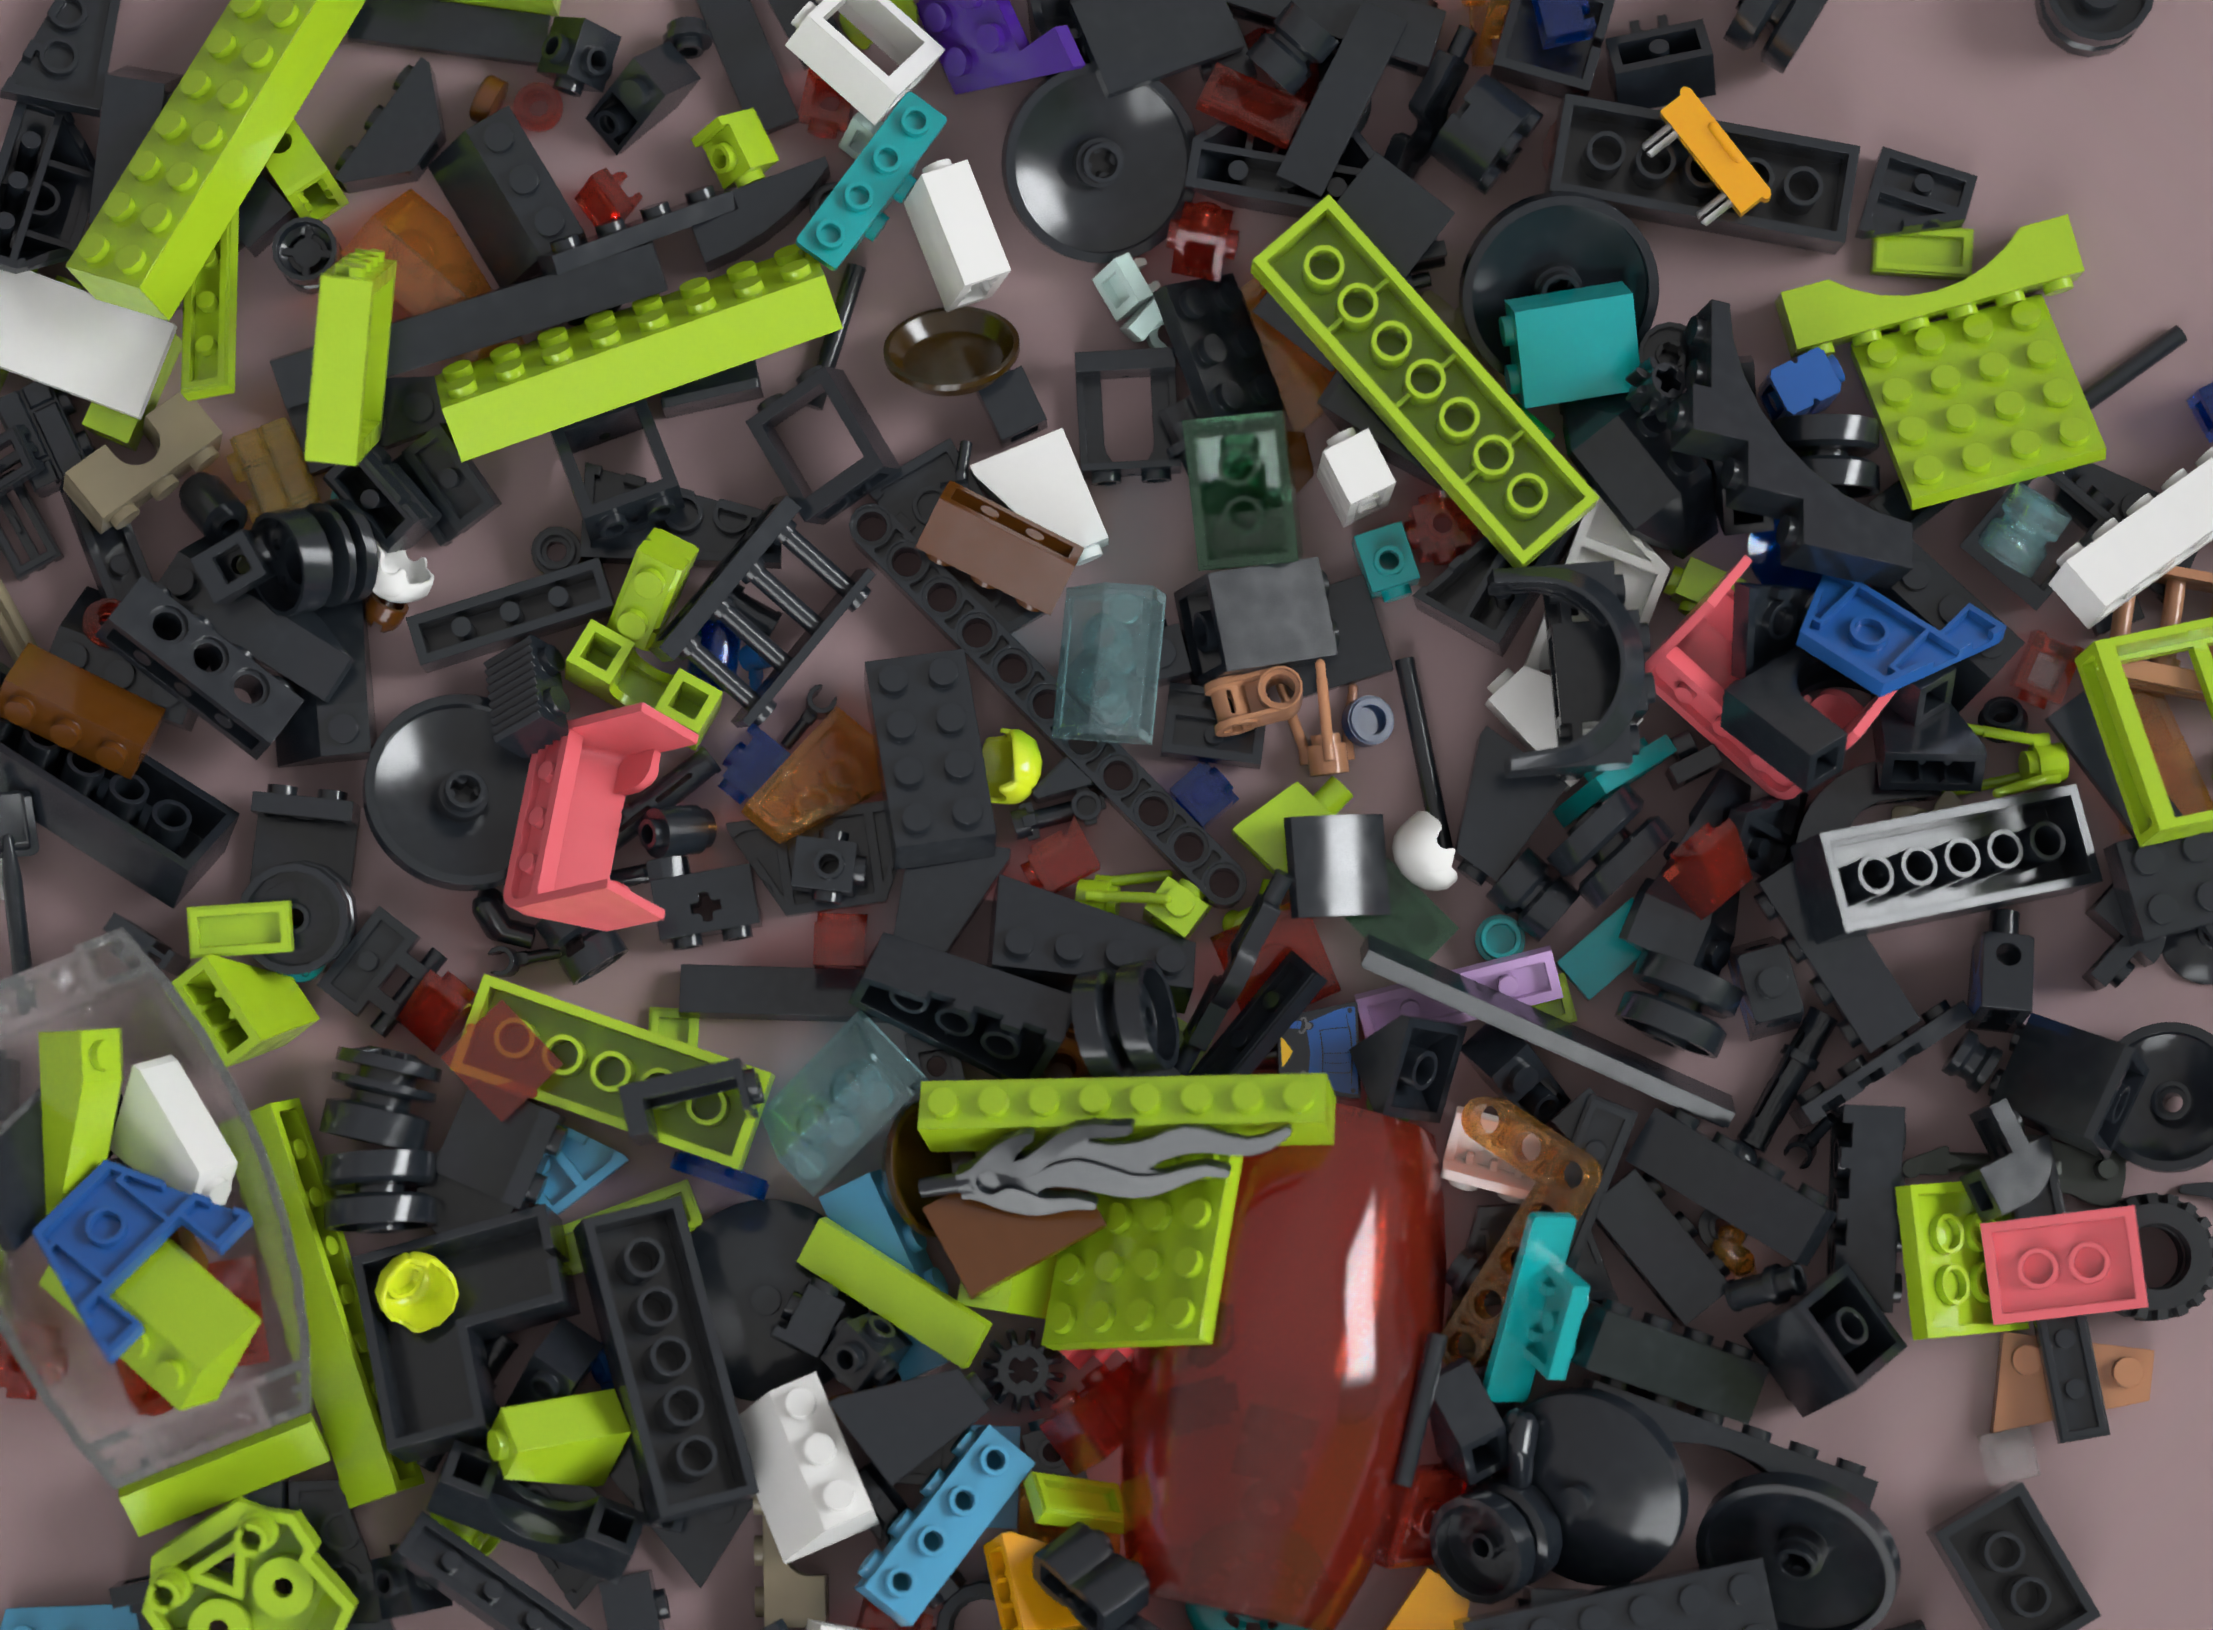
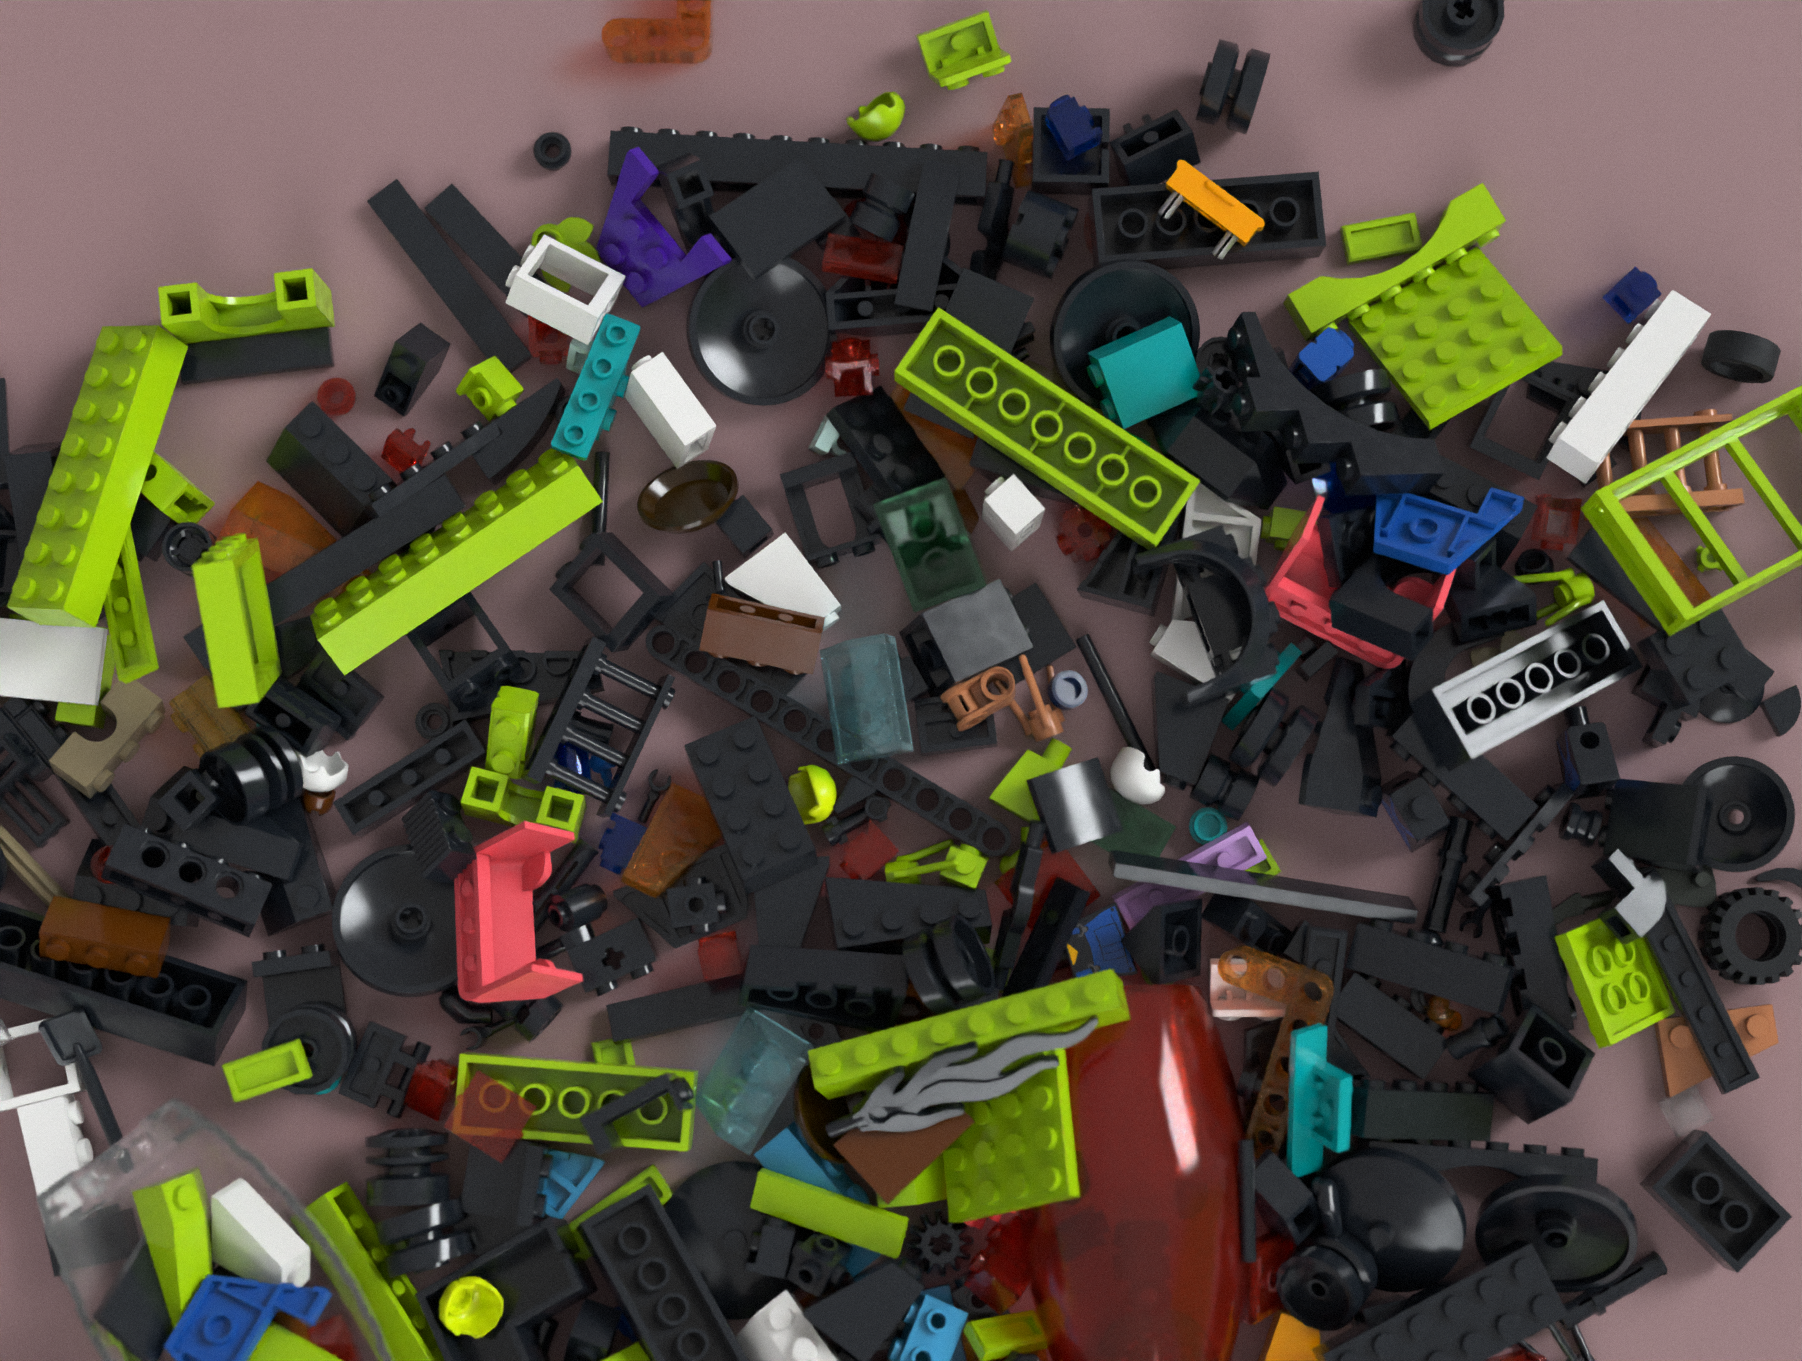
camera: 10 degrees left, 0 degrees up
(153, 947) = (201, 1097): black plate -> none
(212, 506) = (169, 755): black brick -> none
(244, 1006) = (285, 1127): lime slope -> none
(398, 137) = (238, 444): black slope -> none
(488, 98) = (297, 399): reddish brown tile -> none
(578, 55) = (355, 350): black brick -> none
(688, 36) = (434, 315): black plate -> none
(714, 391) = (520, 572): black panel -> none
(720, 1175) = (676, 1159): clear blue tile -> none
(1124, 285) = (803, 415): light aqua tile -> none
(1204, 794) = (961, 776): clear blue brick -> none
(1386, 562) = (1050, 569): teal brick -> none
(1600, 955) = (1285, 817): teal tile -> none
(1681, 997) = (1354, 846): black wheel -> none
(1709, 868) = (1353, 735): clear red slope -> none
(1914, 196) = (1365, 199): black wing -> none
(2024, 529) = (1517, 422): clear light blue wheel -> none
(2064, 1265) = (1694, 961): coral plate -> none
(2134, 366) = (1560, 280): black bar -> none

